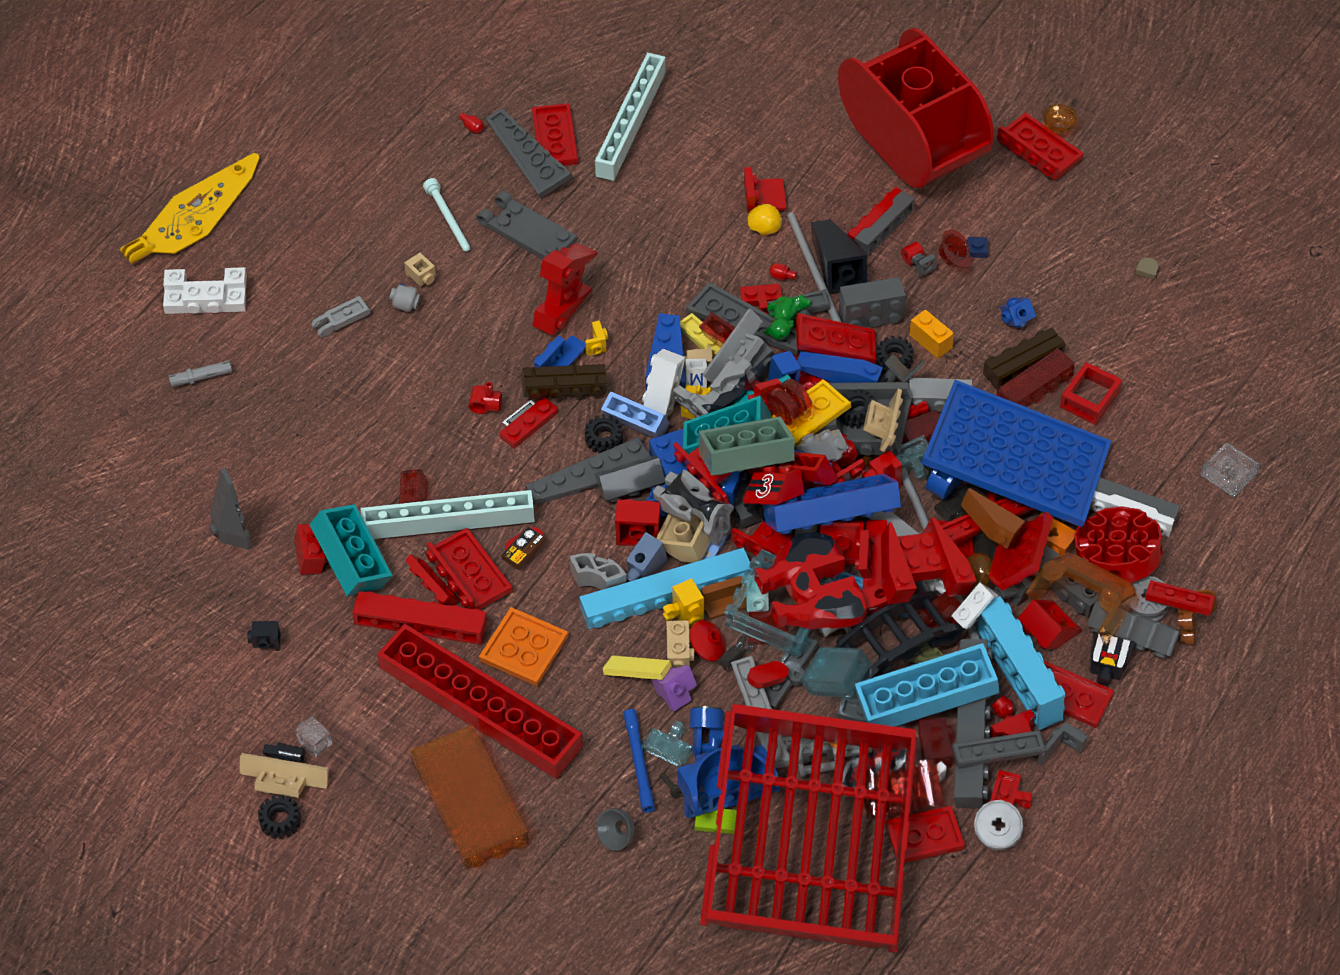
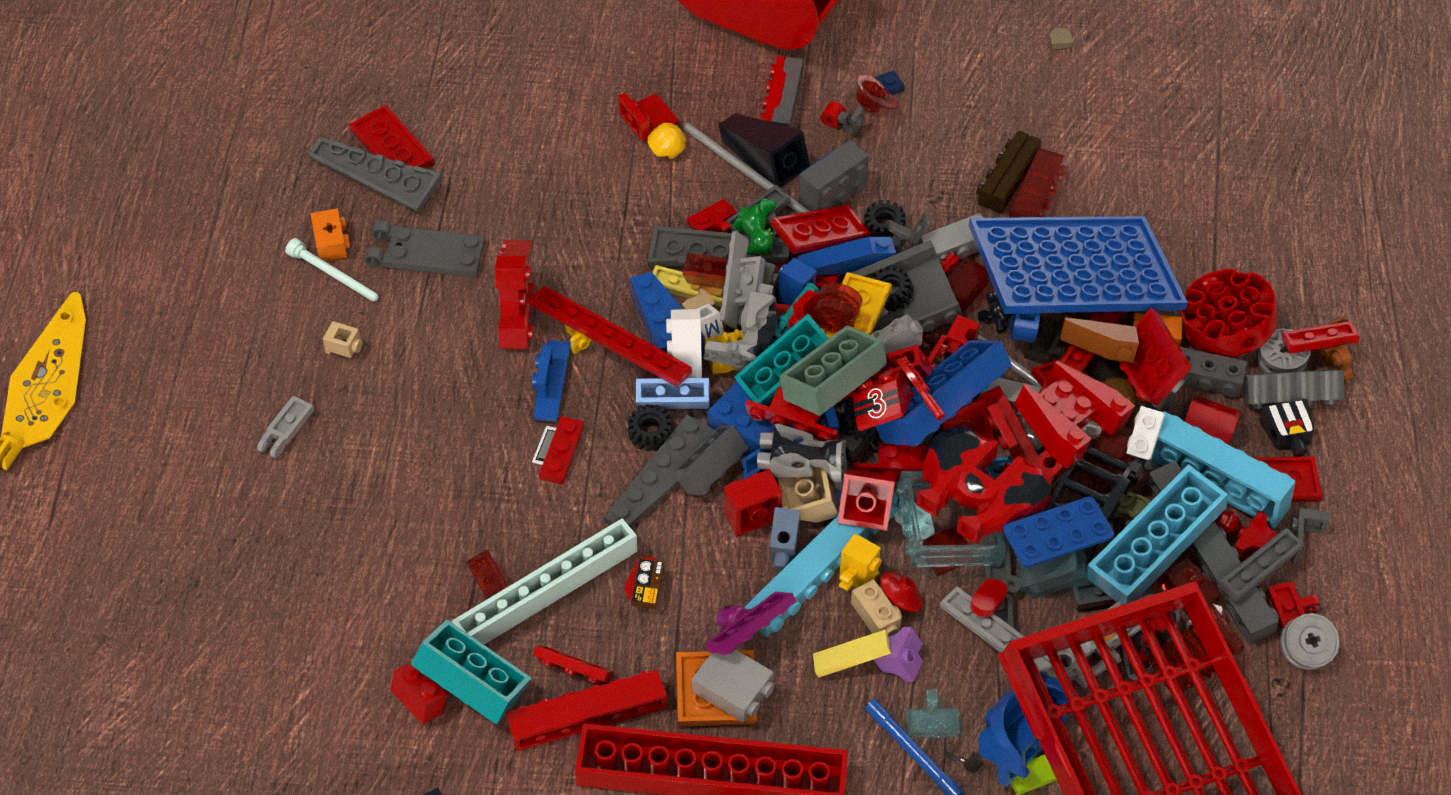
camera: 30 degrees left, 0 degrees up
(201, 373) = (157, 563): light grey pin -> none
(204, 295) = (116, 469): white bracket -> none
(227, 516) = (307, 697): dark grey wedge -> none
(404, 297) = (344, 376): light grey head -> none
(462, 186) = (328, 235): none -> orange brick
(468, 570) = (604, 634): red bracket -> none
(472, 123) = (295, 165): red cylinder -> none
(485, 399) = (502, 445): red piece -> none
(533, 646) = (733, 683): none -> light grey brick
(564, 381) = (575, 390): dark brown brick -> none
(566, 603) = (743, 623): none -> magenta plate
(596, 571) = (743, 573): light grey brick -> none
(613, 351) = (610, 336): none -> red tile
(630, 116) = (462, 93): light aqua brick -> none
(706, 719) = (957, 673): blue piece -> none
(719, 595) = (889, 541): dark orange panel -> none
(722, 558) = (866, 499): none -> red slope
(735, 653) = (934, 593): clear smoke bar -> none
(782, 272) = (718, 186): red cylinder -> none
(804, 485) = (921, 387): none -> red piece
(846, 647) = (1058, 532): none -> blue bracket
(881, 420) = (934, 286): tan bracket -> none
(912, 454) = (974, 308): clear light blue plate -> none
(929, 834) = (1262, 677): red plate -> none
(931, 334) = (907, 185): light orange brick -> none
(1017, 311) = (974, 129): blue brick -> none
(1091, 411) = (1104, 195): red window -> none
(1115, 495) = (1195, 265): piece -> none
(1116, 593) = (1265, 355): clear orange windscreen -> none
(1230, 469) = (1270, 196): clear brick -> none

